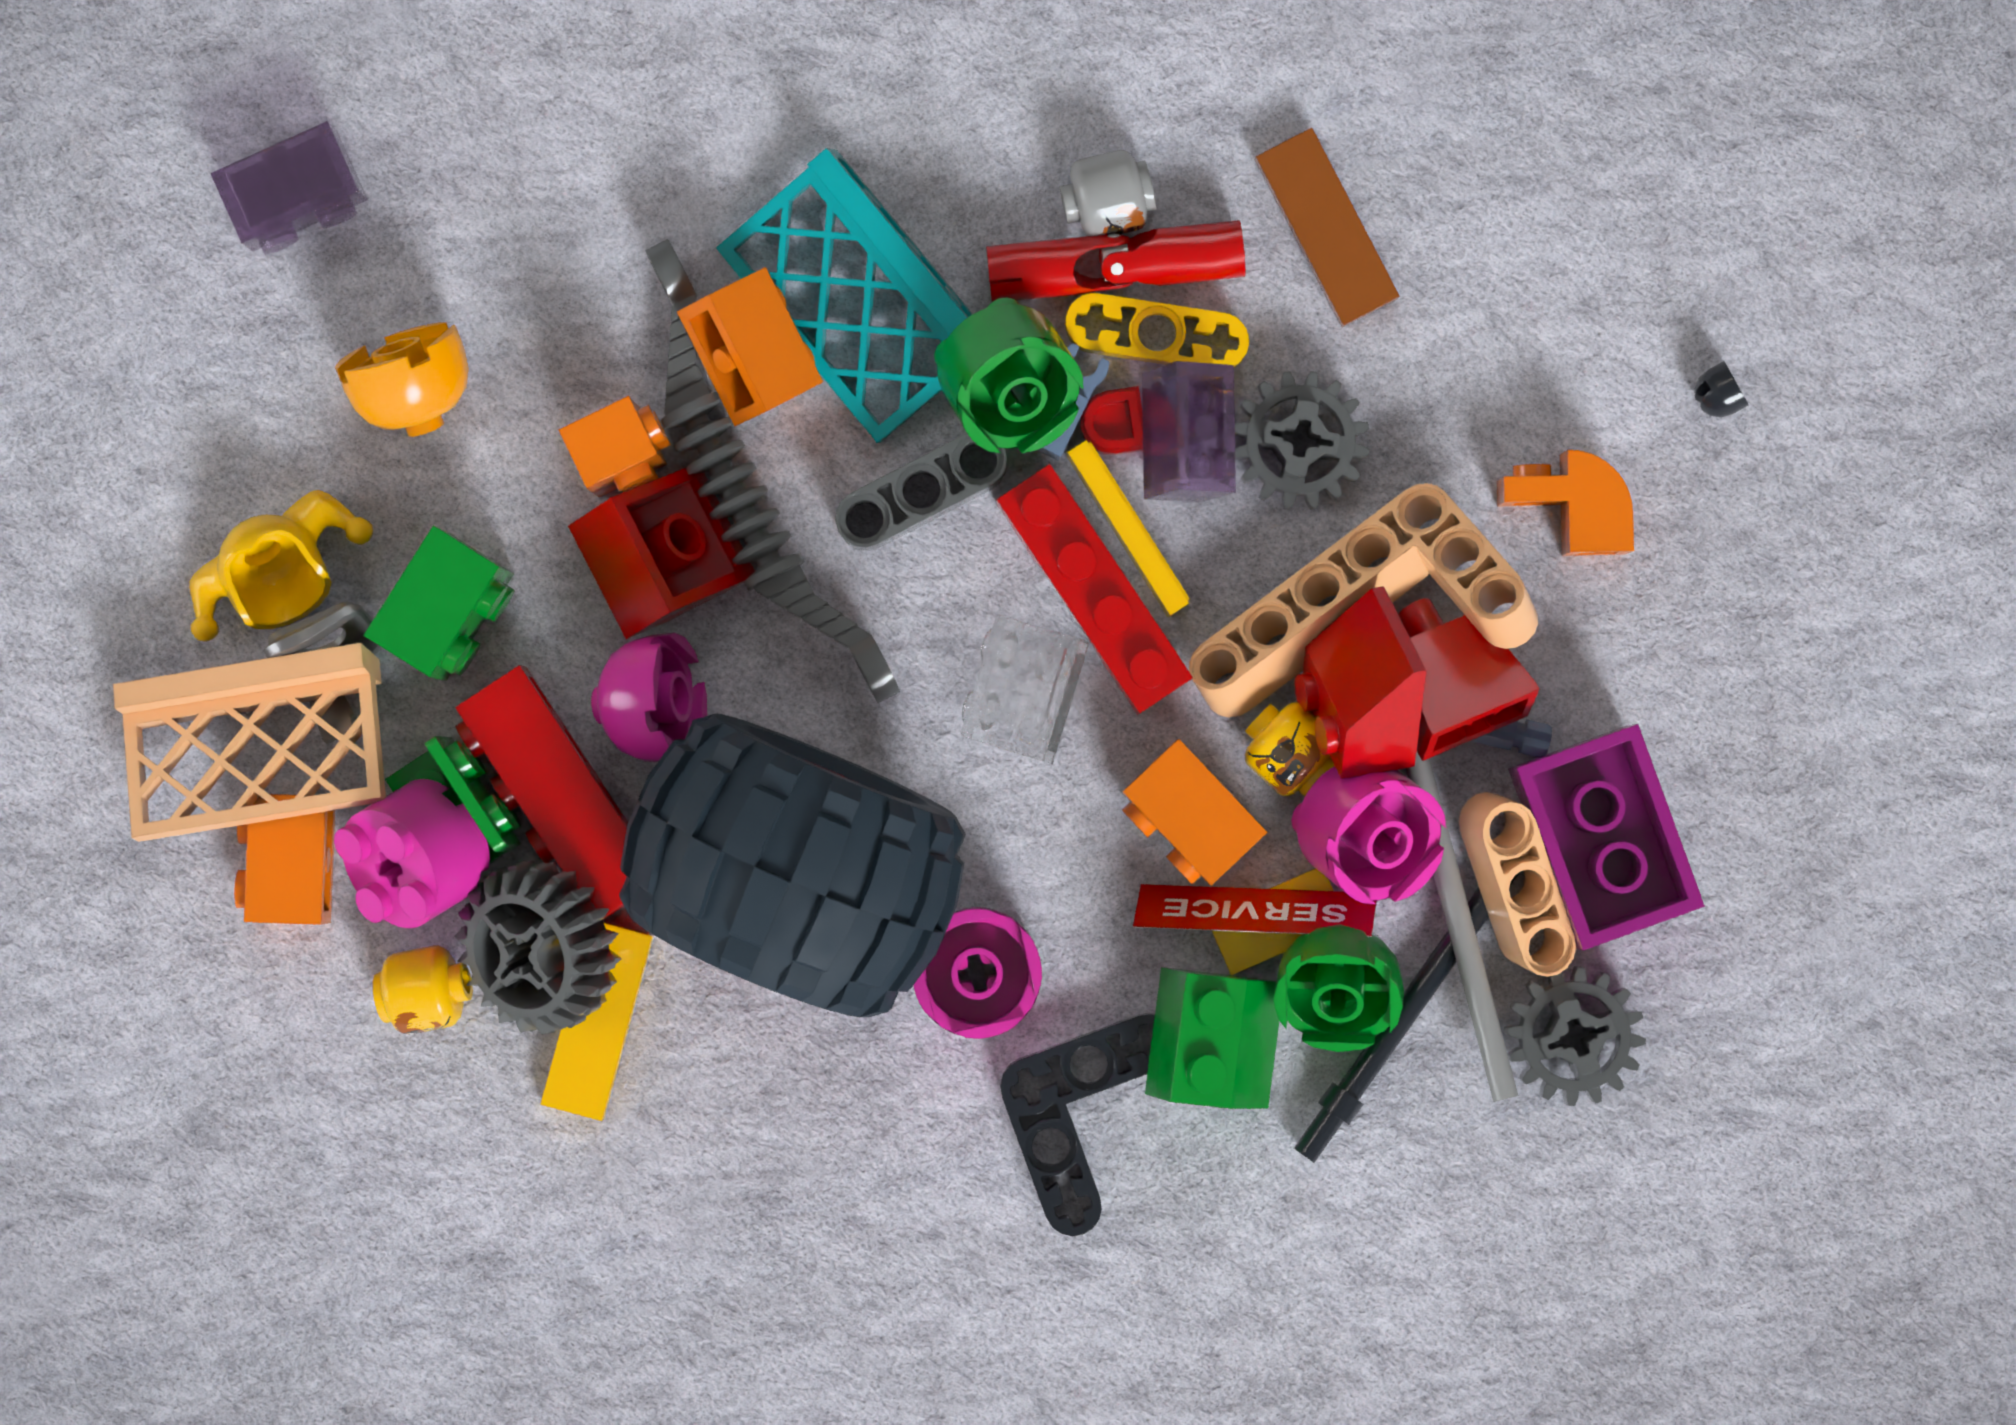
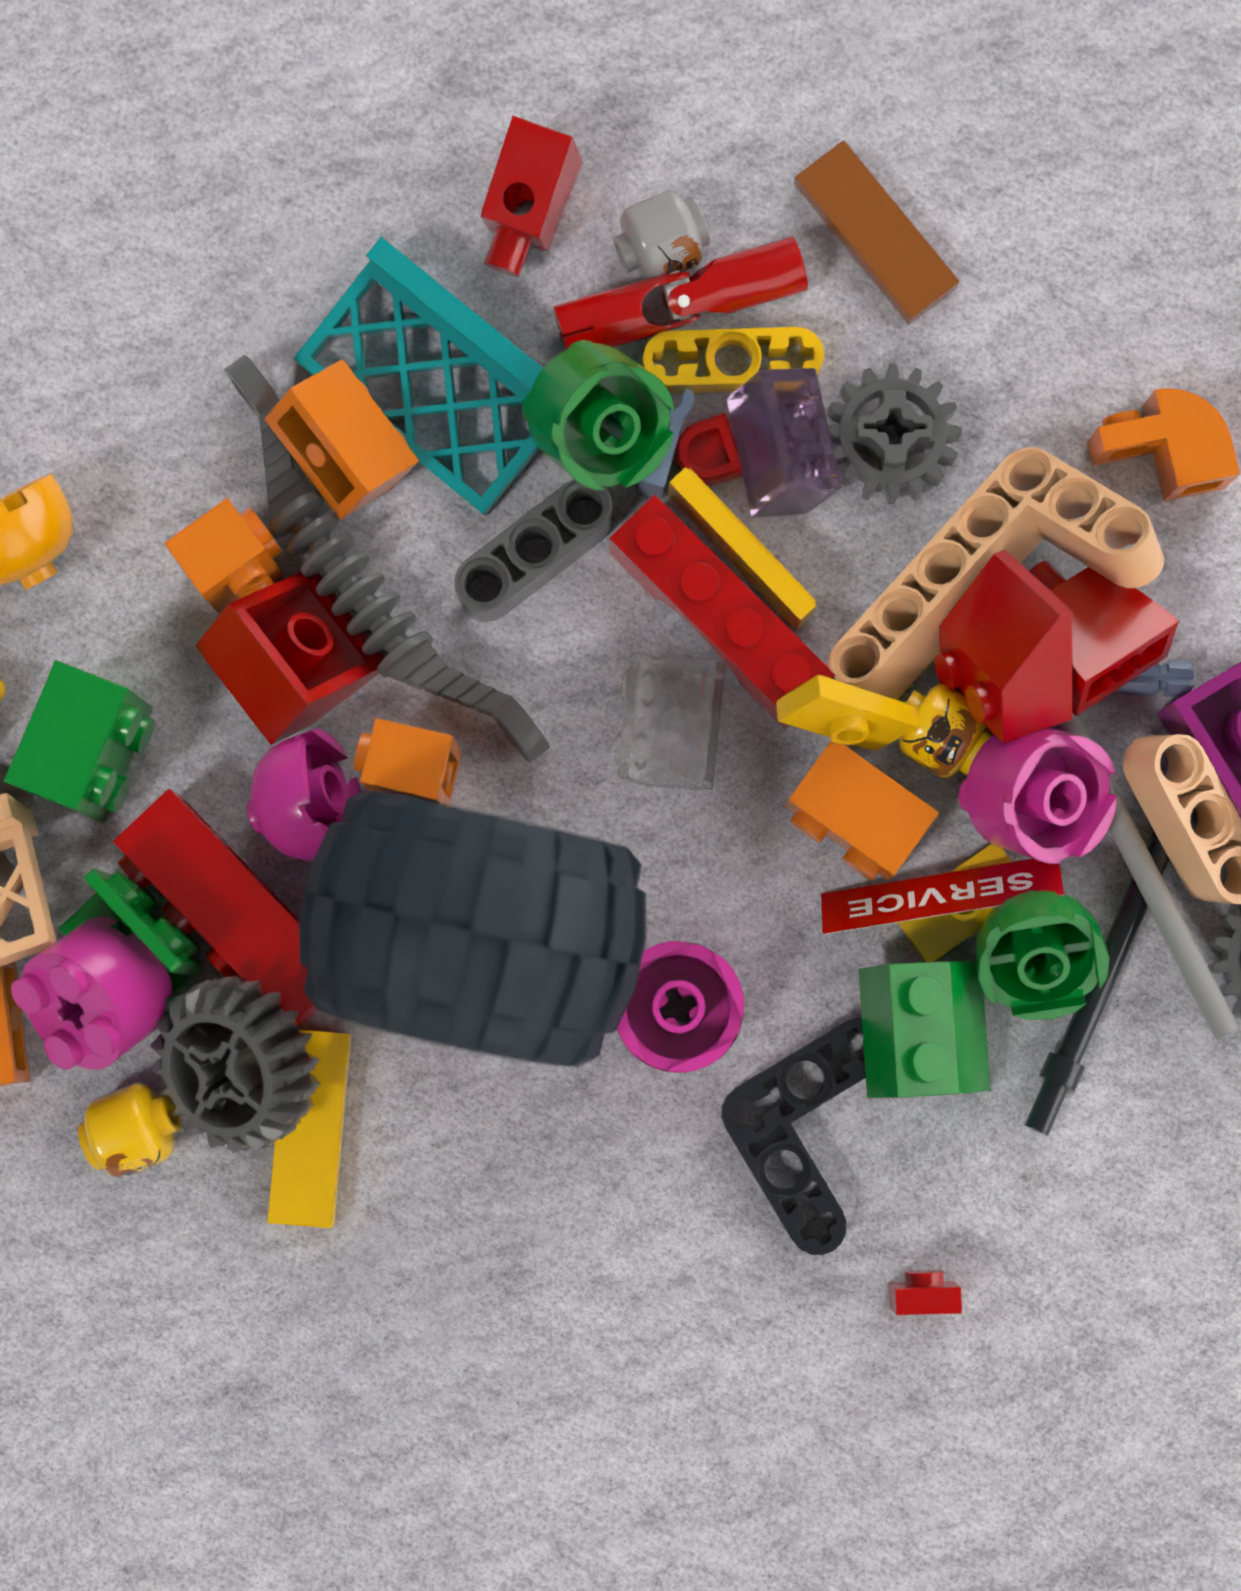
camera: 10 degrees left, 5 degrees down
(757, 686) = (408, 761): none -> orange brick
(996, 106) = (534, 168): none -> red torso
(1163, 1292) = (925, 1294): none -> red plate
(1196, 719) = (847, 713): none -> yellow plate

